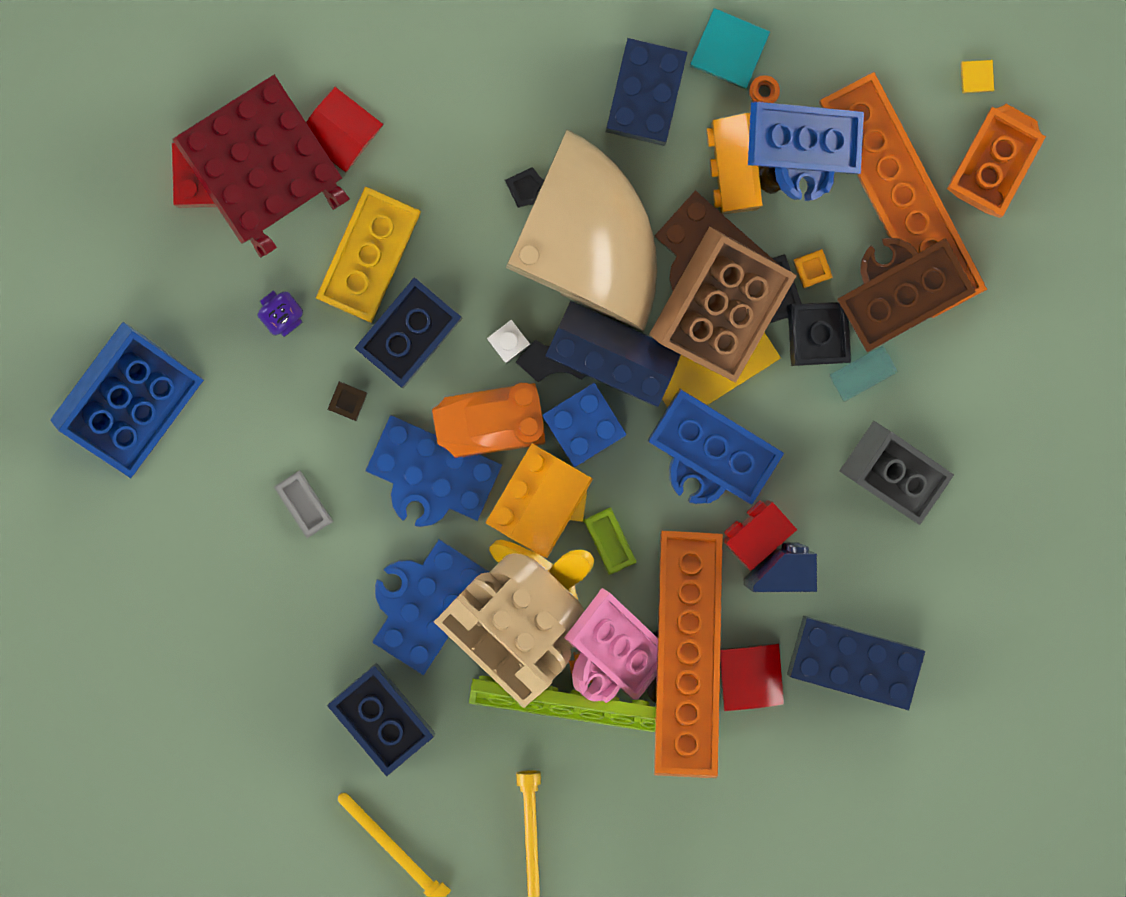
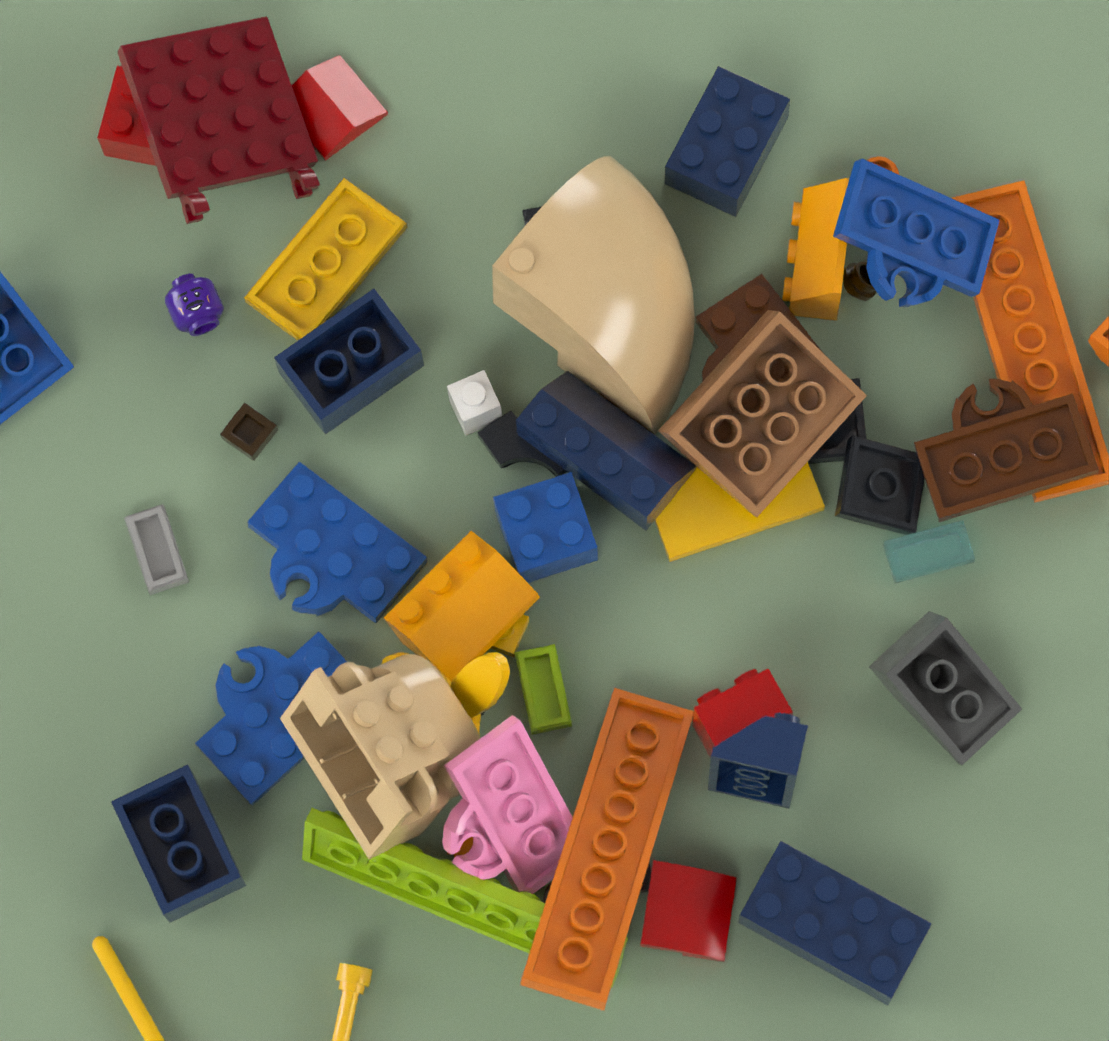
camera: 15 degrees right, 15 degrees down
(490, 421) = (424, 495): orange slope -> none
(713, 451) = (706, 600): blue plate -> none
(730, 48) = (846, 116): teal tile -> none
(812, 268) = (891, 406): light orange tile -> none

